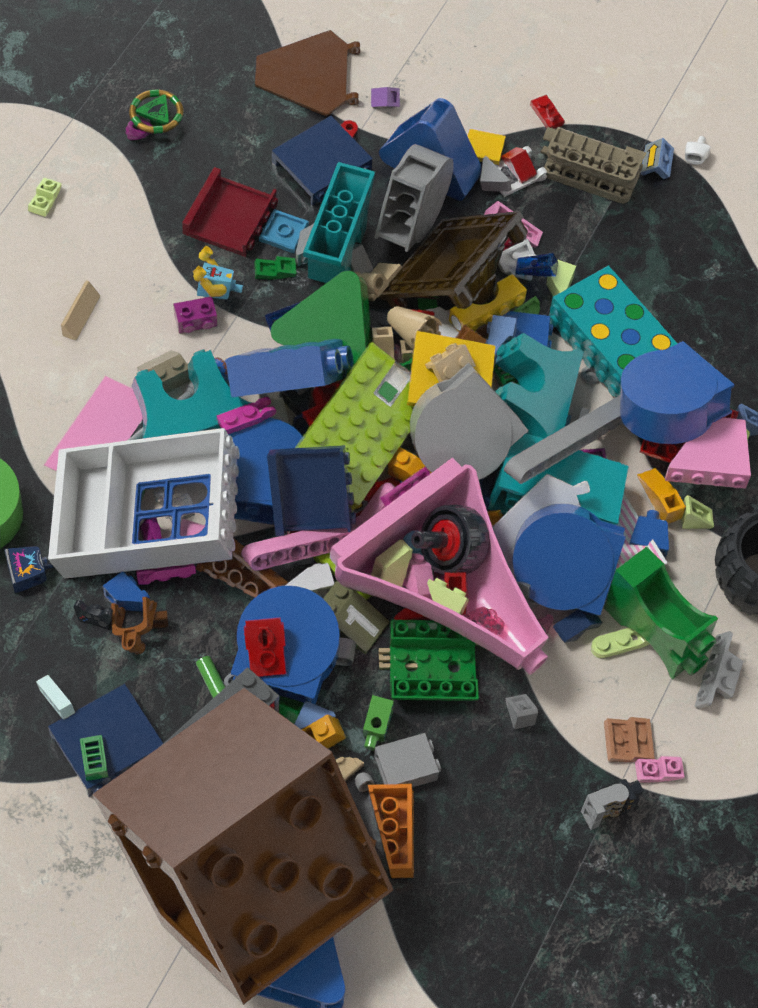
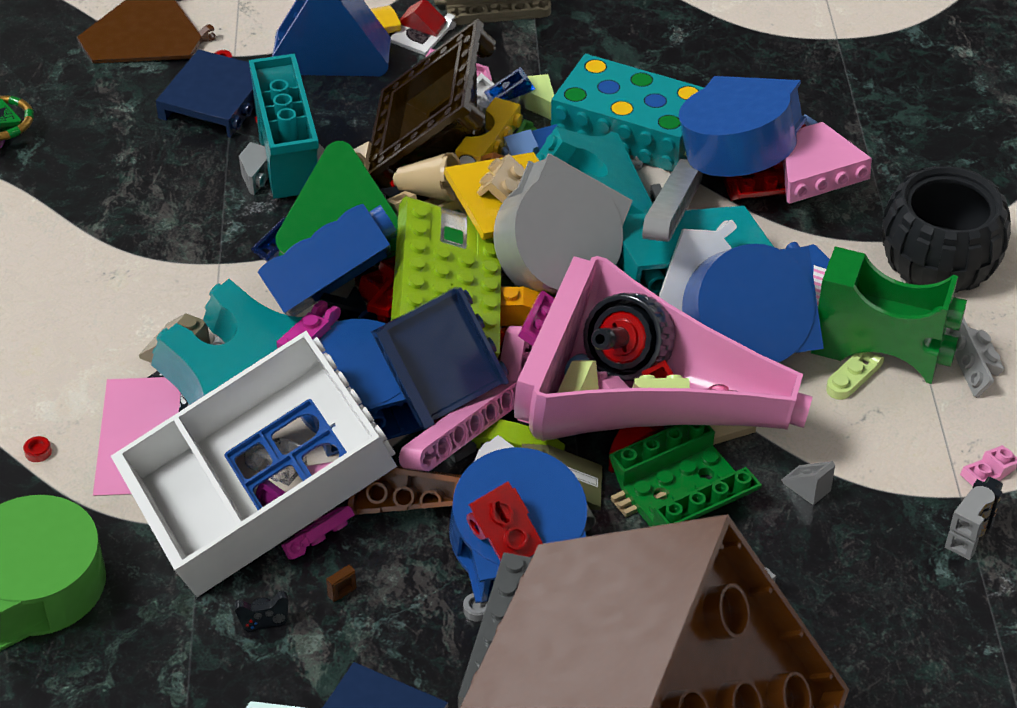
camera: 25 degrees left, 15 degrees down
(26, 567) = (145, 602): dark blue torso -> none
(28, 410) = (37, 449): none -> red tile
(80, 311) = (35, 329): tan slope -> none
(124, 592) = (287, 573): blue slope -> none
(132, 636) = (324, 611): dark orange piece -> none
(195, 315) = (173, 277): magenta brick -> none
(210, 675) = (448, 612): bright green piece -> none
(213, 279) = (175, 235): torso -> none
(228, 214) = (146, 178): dark red panel -> none
(279, 269) = (236, 202): green slope -> none
(283, 231) = (216, 169): dark azure tile -> none
(385, 97) = (242, 16): medium lavender panel -> none
(414, 196) = (345, 67): light grey brick -> none
(493, 178) = (406, 38): light grey slope -> none
(576, 624) = (808, 368): dark blue slope -> none
(628, 739) = (937, 456): nougat slope -> none
(662, 495) = (792, 226): light orange slope -> none
(696, 515) = (832, 231): yellowish green slope -> none

